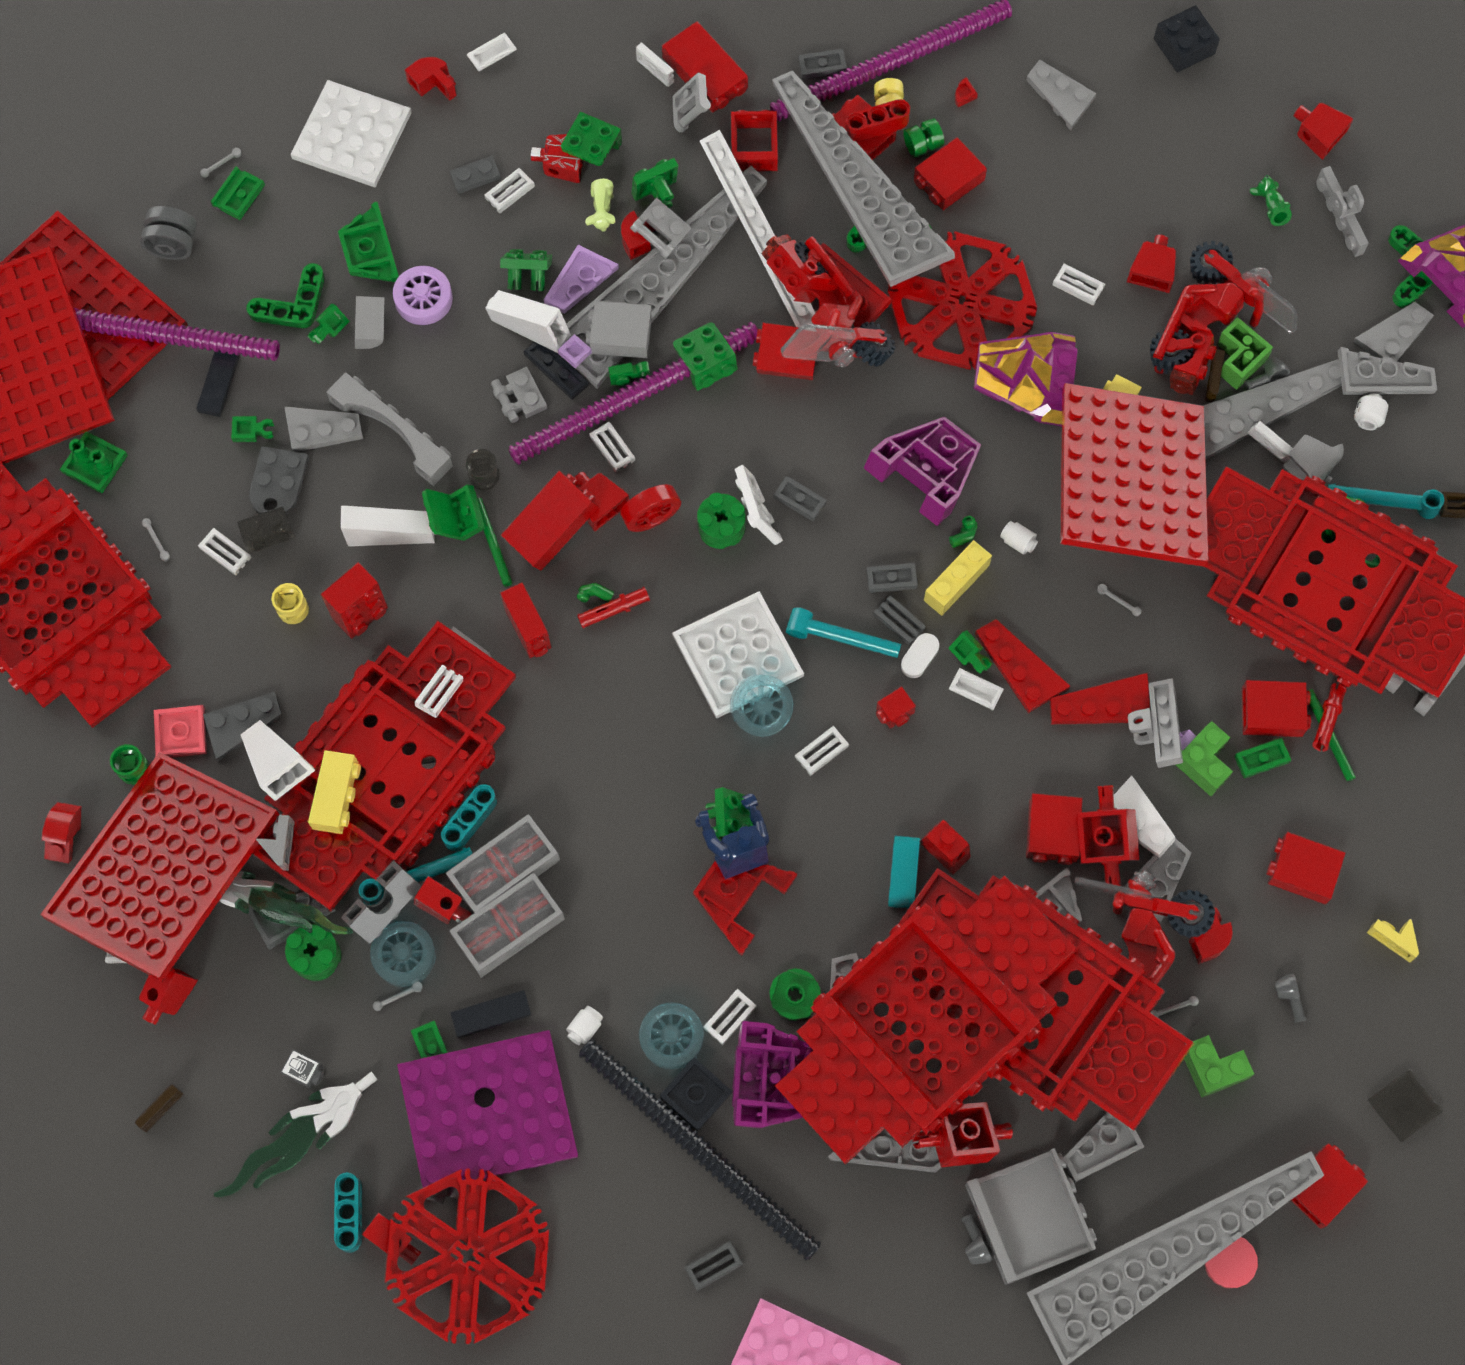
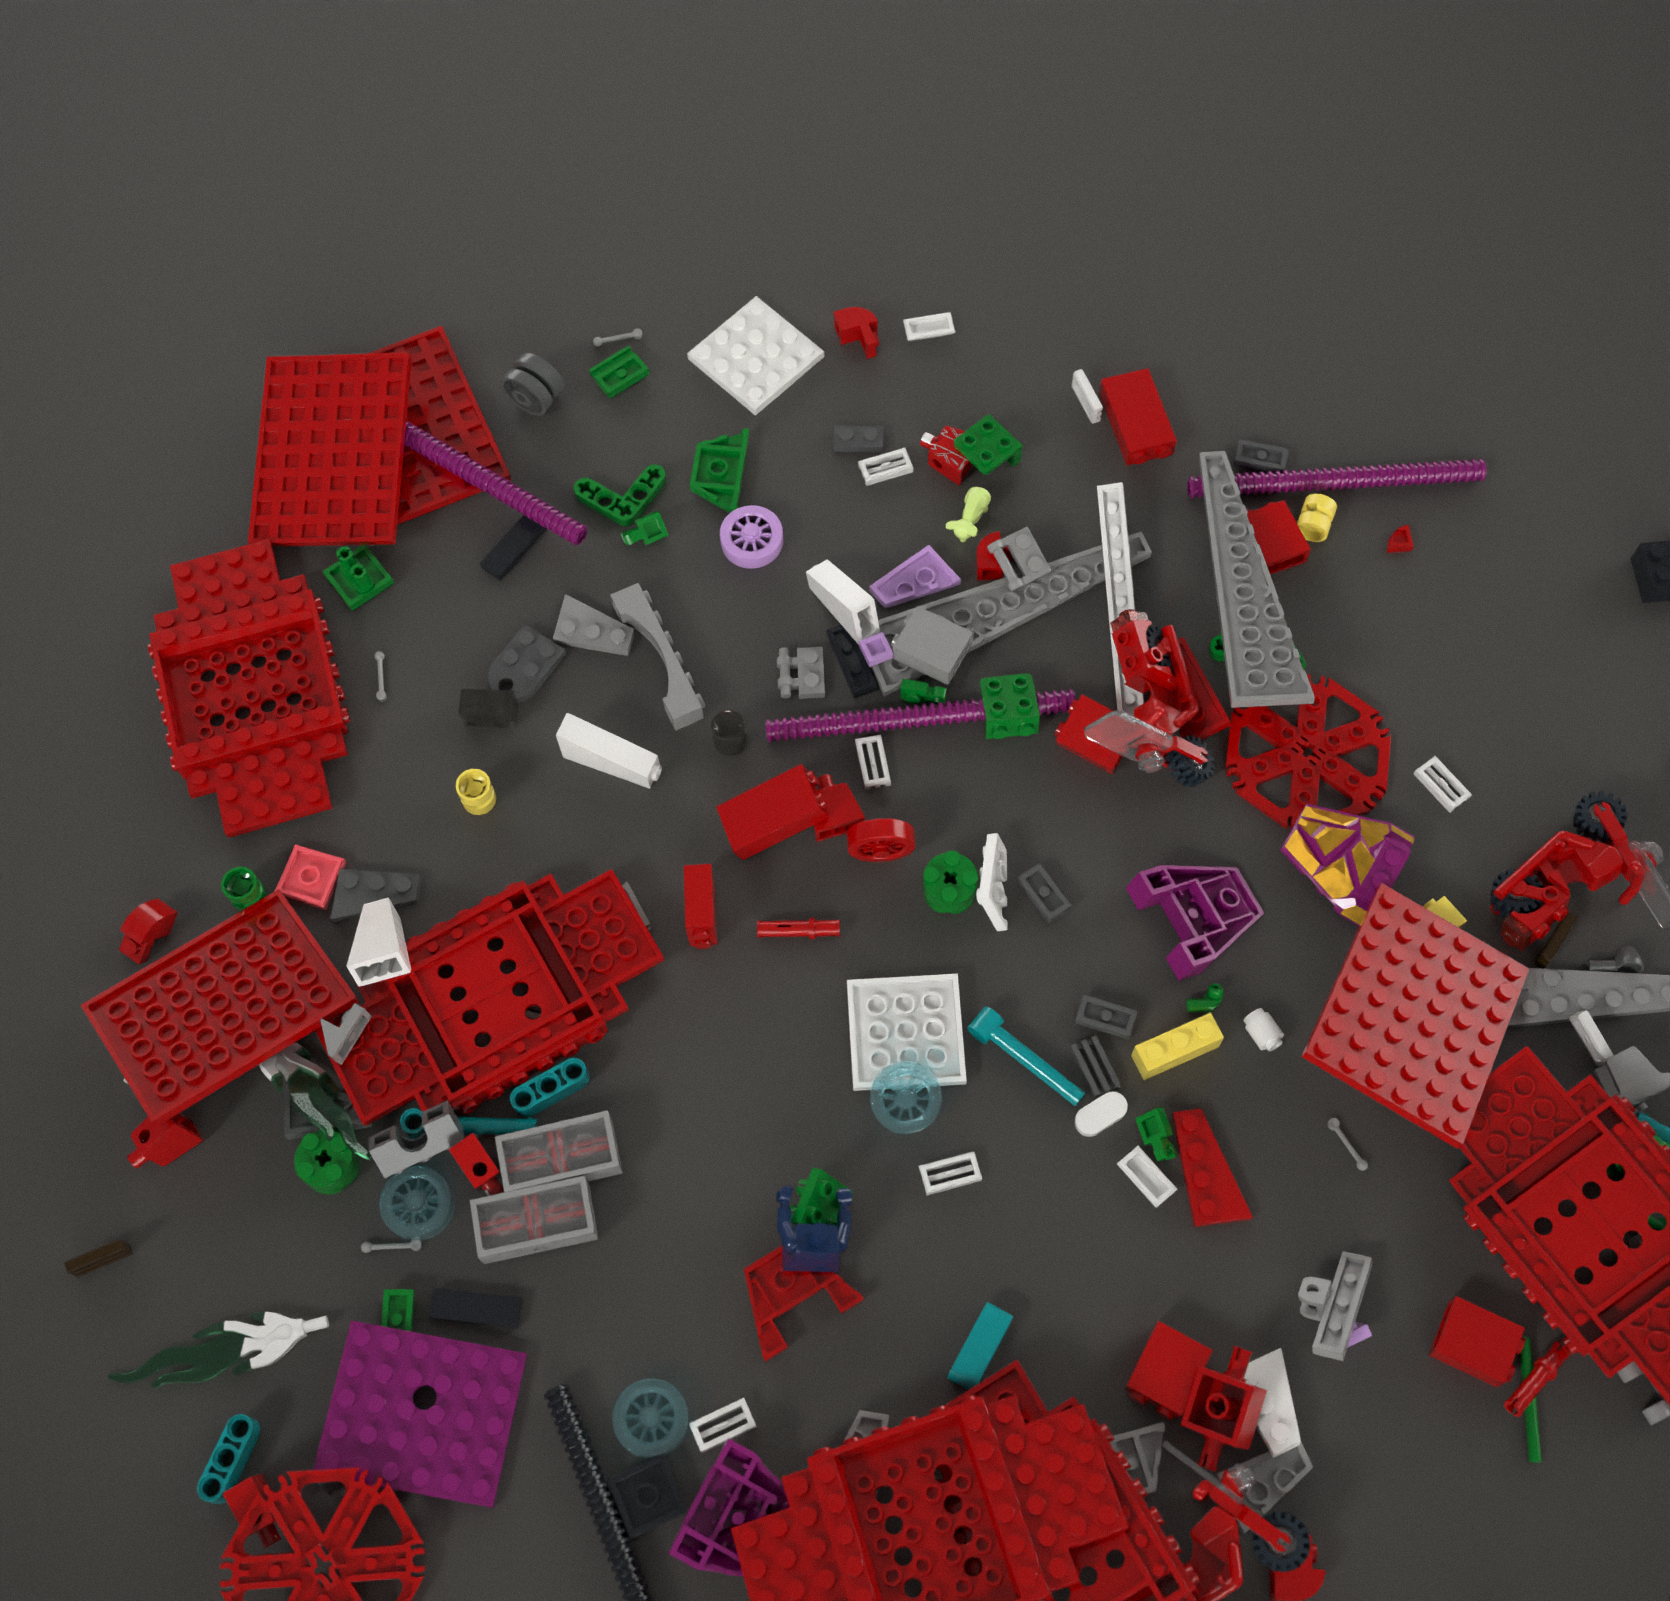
camera: 25 degrees right, 5 degrees down
(239, 563) = (449, 731): white tile -> none
(247, 428) = (519, 601): green plate -> none
(303, 1069) = (258, 1282): dark grey brick -> none
(334, 792) = (420, 1003): light yellow brick -> none
(355, 601) = (536, 814): red brick -> none
(369, 322) = (685, 542): light grey brick -> none
(449, 675) = (569, 934): white tile -> none
(454, 514) = (678, 766): green bracket -> none
(494, 546) = (707, 810): green piece -> none
(516, 260) = (860, 537): green plate -> none
(584, 1025) = (564, 1365): white brick -> none
(594, 589) = (785, 901): green arm -> none
(656, 182) = (1035, 511): green plate -> none
(684, 99) = (1105, 445): light grey plate -> none
(755, 119) = (1153, 529): red window -> none
(782, 1002) = (785, 1433): green plate -> none
(885, 112) = (1304, 527): red beam -> none
(895, 708) = (1048, 1161): red brick -> none
(925, 137) = (1327, 569): green wheel -> none
(946, 846) = (1039, 1339): red torso -> none
(949, 174) = (1349, 616): red brick -> none
(1062, 93) = (1506, 577): light grey wing -> none
(1102, 703) = (1282, 1252): red wing -> none
(1154, 265) = (1534, 795): red torso -> none
(1201, 760) = (1366, 1364): bright green brick -> none
(1246, 350) = (1601, 929): bright green brick -> none
(1262, 758) = (1440, 1392): green plate -> none
(1305, 867) = (1440, 1543): red brick -> none

